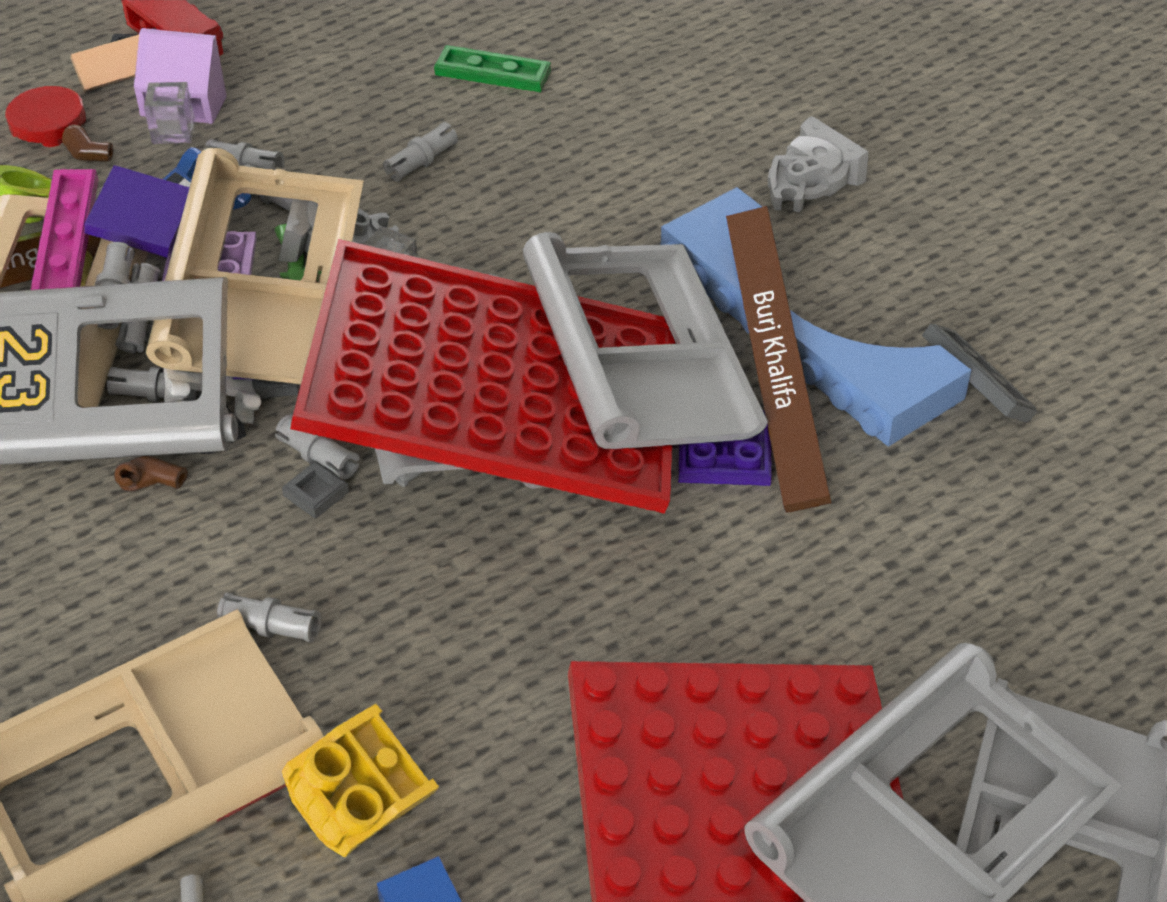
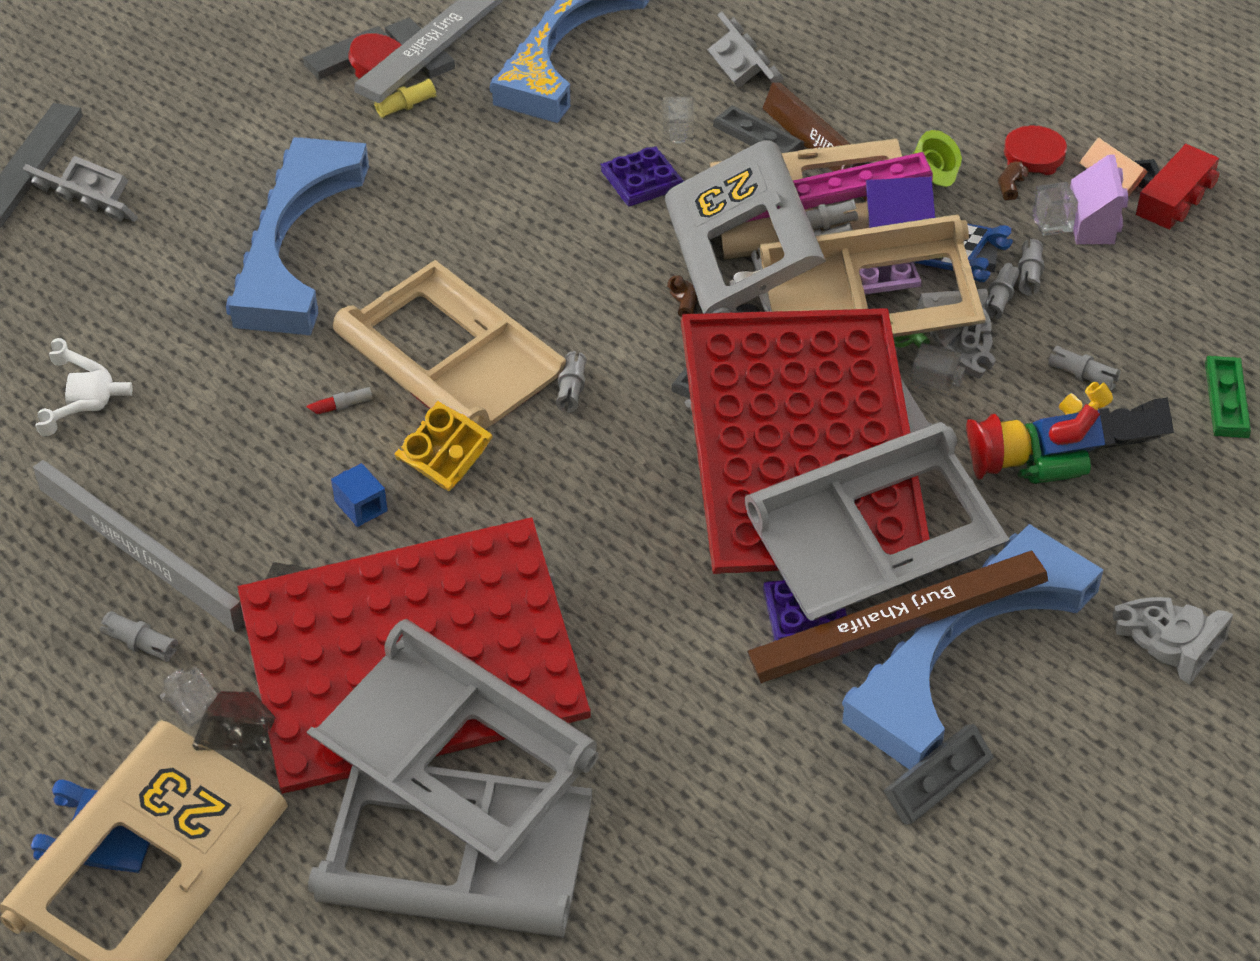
camera: 80 degrees right, 0 degrees up
(543, 170) = (1060, 445): none -> piece

